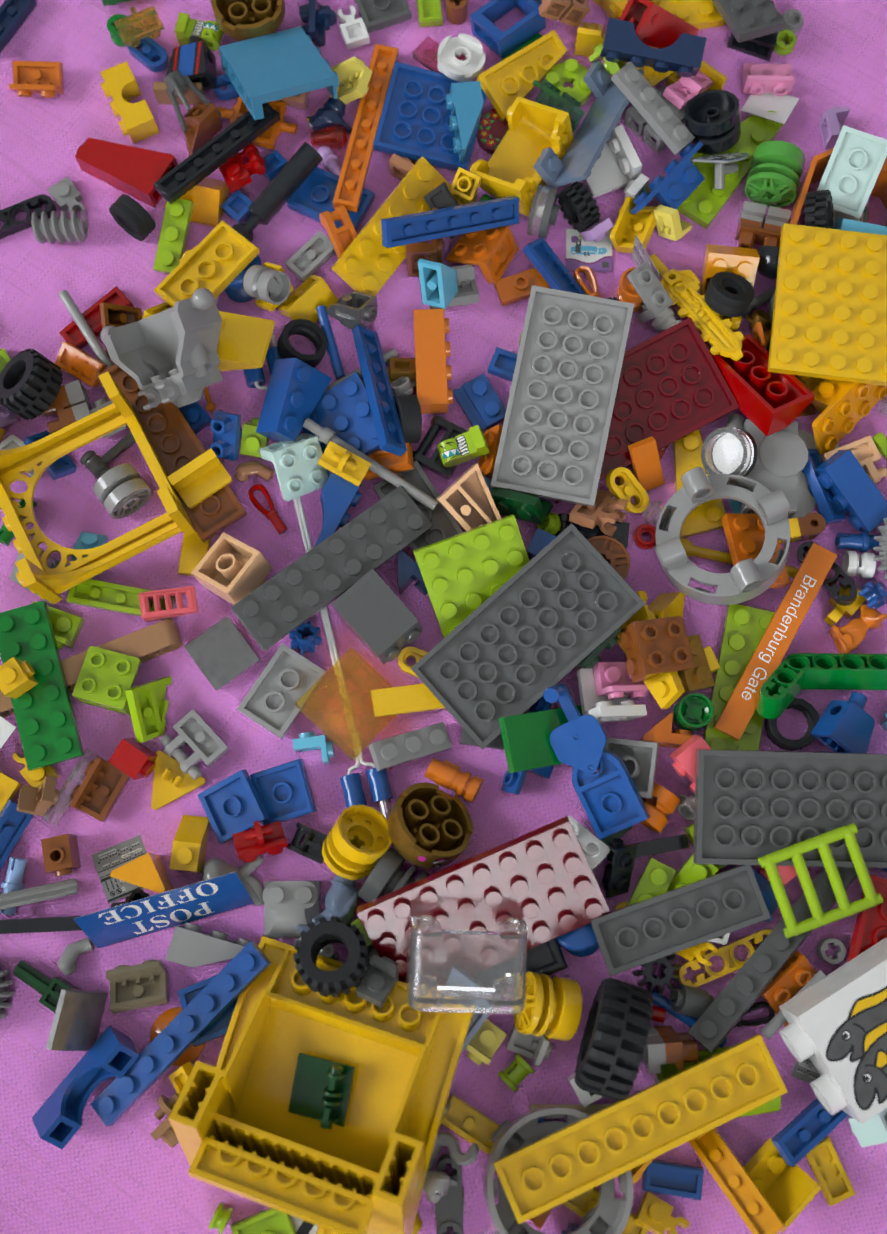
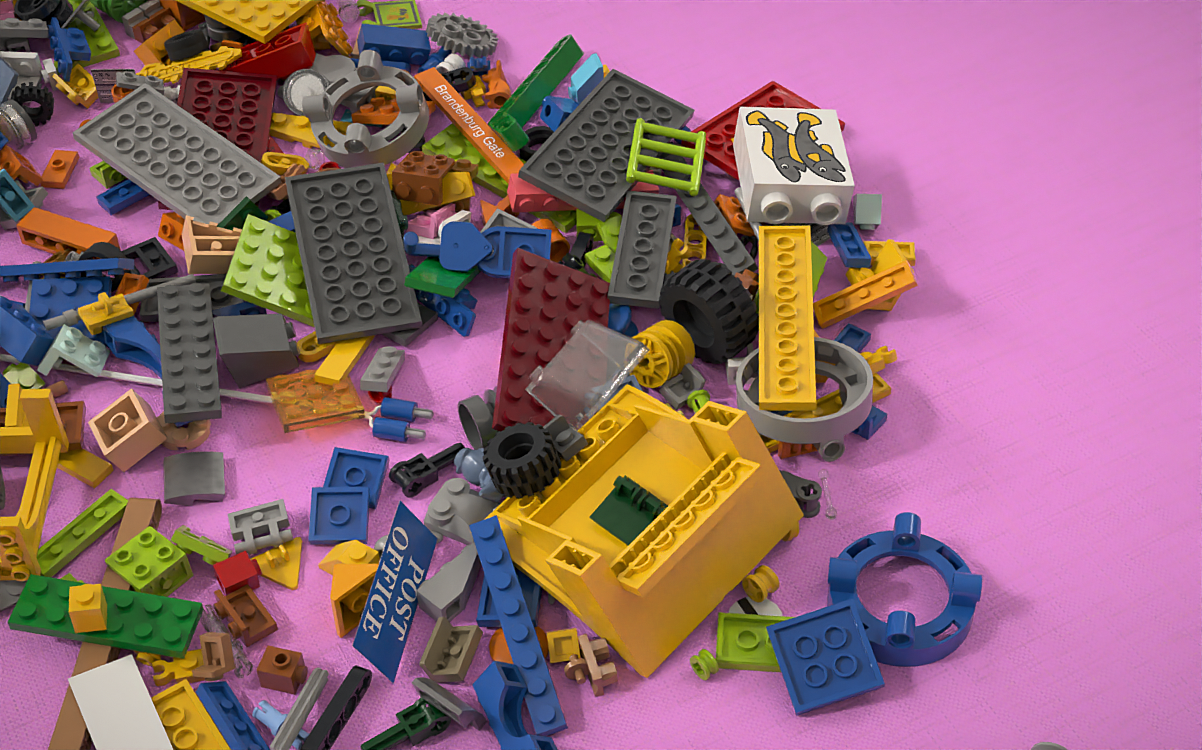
camera: 65 degrees left, 30 degrees down
(70, 954) = (383, 700): light grey arm -> none
(112, 858) = (322, 638): light grey sticker -> none
(166, 594) = (113, 507): coral slope -> none
(260, 840) = (383, 502): red hips -> none
(271, 515) = (100, 397): red piece -> none
(278, 689) = (264, 446): light grey plate -> none
(305, 645) = (233, 409): blue gear -> none
(308, 742) = (328, 438): medium azure bracket -> none
(356, 842) = (436, 420): yellow wheel -> none
(429, 826) = (459, 375): pearl gold cylinder -> none
(451, 778) = (431, 358): orange axle -> none
(463, 447) = (162, 236): lime leg -> none
(480, 403) = (134, 228): blue plate -> none
(551, 267) = (57, 142): blue plate -> none
(588, 253) = (66, 122): sticker -> none
(597, 231) = (61, 105): lavender plate -> none
(646, 463) = (271, 141): orange tile -> none
(669, 223) = (96, 60): light yellow bracket -> none
(687, 807) = (569, 221): light grey plate -> none
(693, 712) = (489, 187): green wheel -> none
(768, 261) = (186, 18): black hair -> none
(838, 955) = (726, 188): light grey bush -> none

